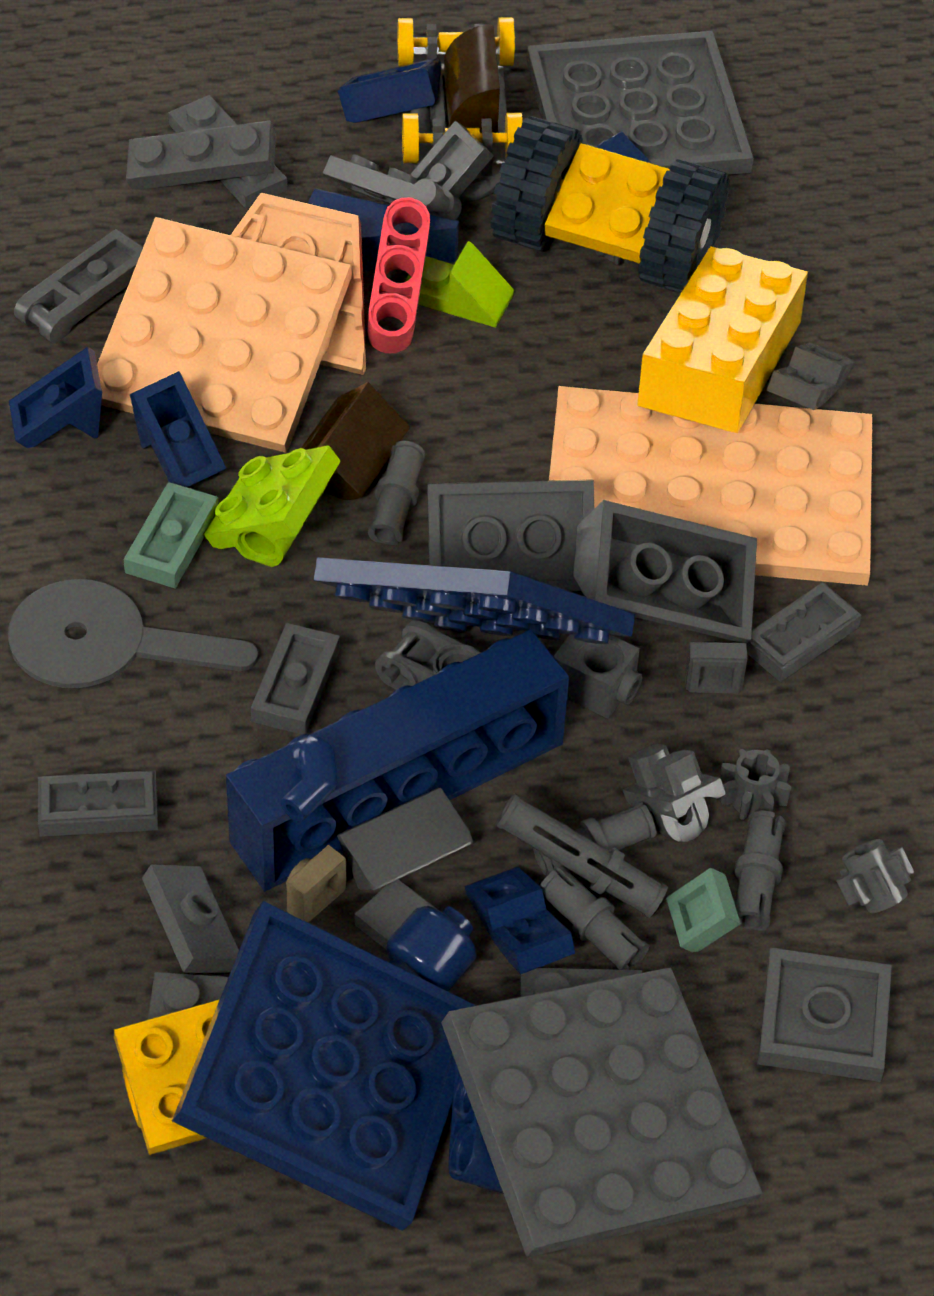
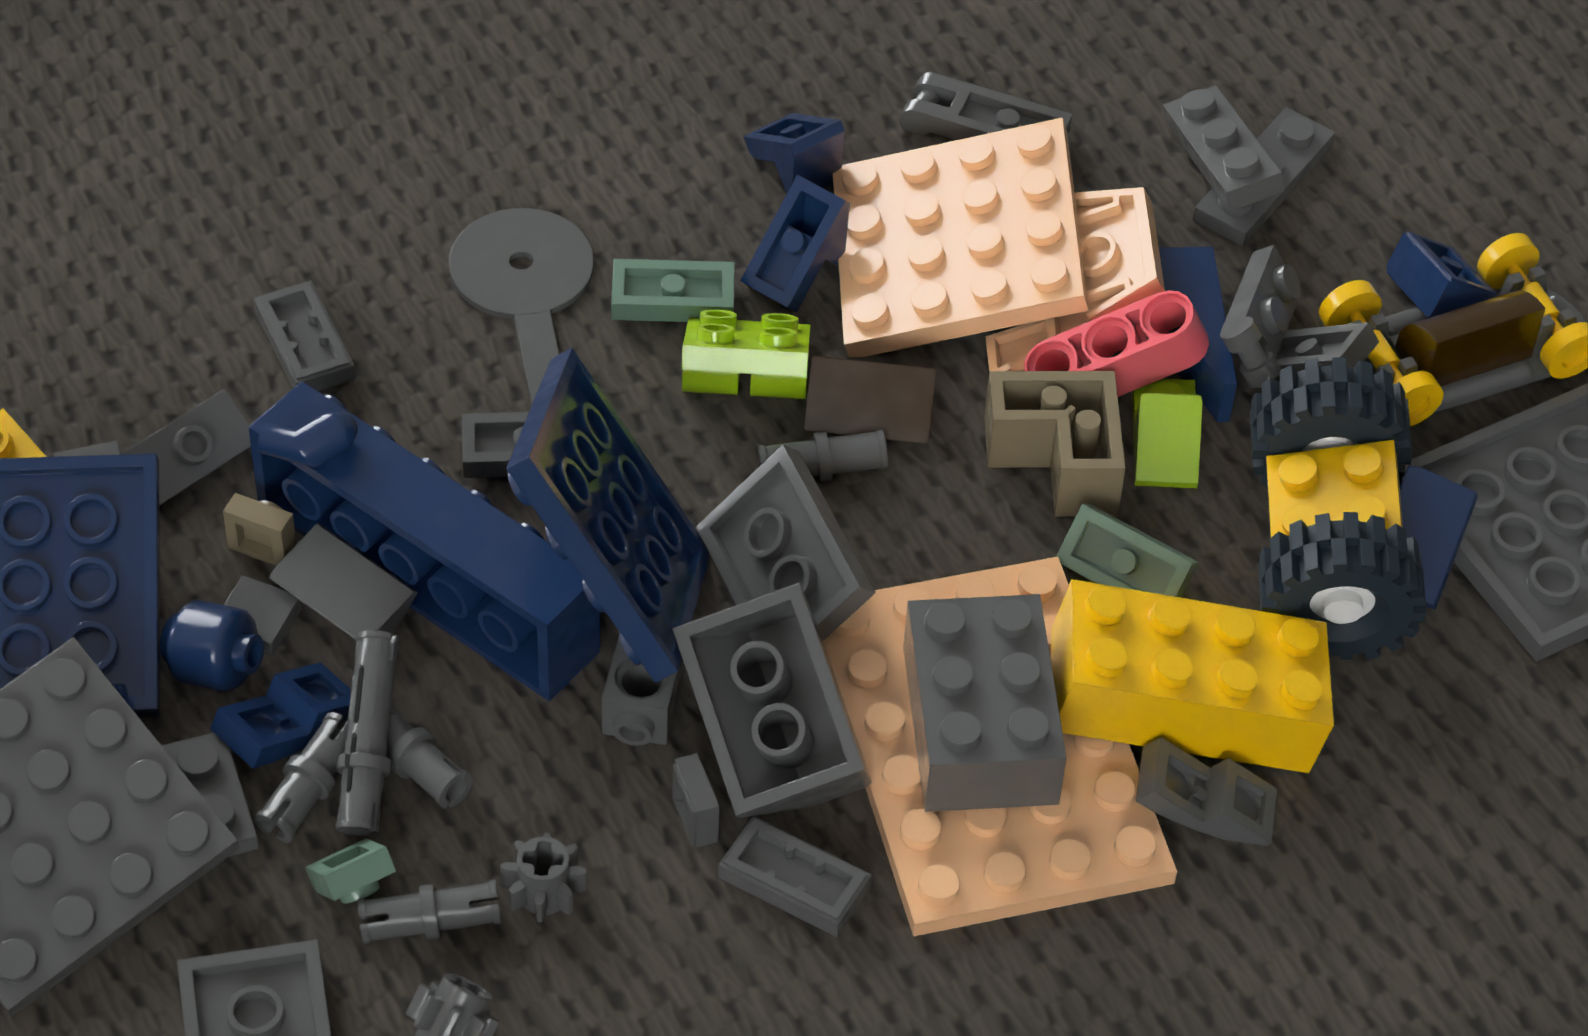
camera: 70 degrees right, 0 degrees up
(456, 329) = (1059, 424): none -> dark tan brick
(583, 347) = (1123, 556): none -> sand green plate
(671, 788) = (493, 795): dark grey hips -> none
(712, 454) = (983, 703): none -> dark grey brick

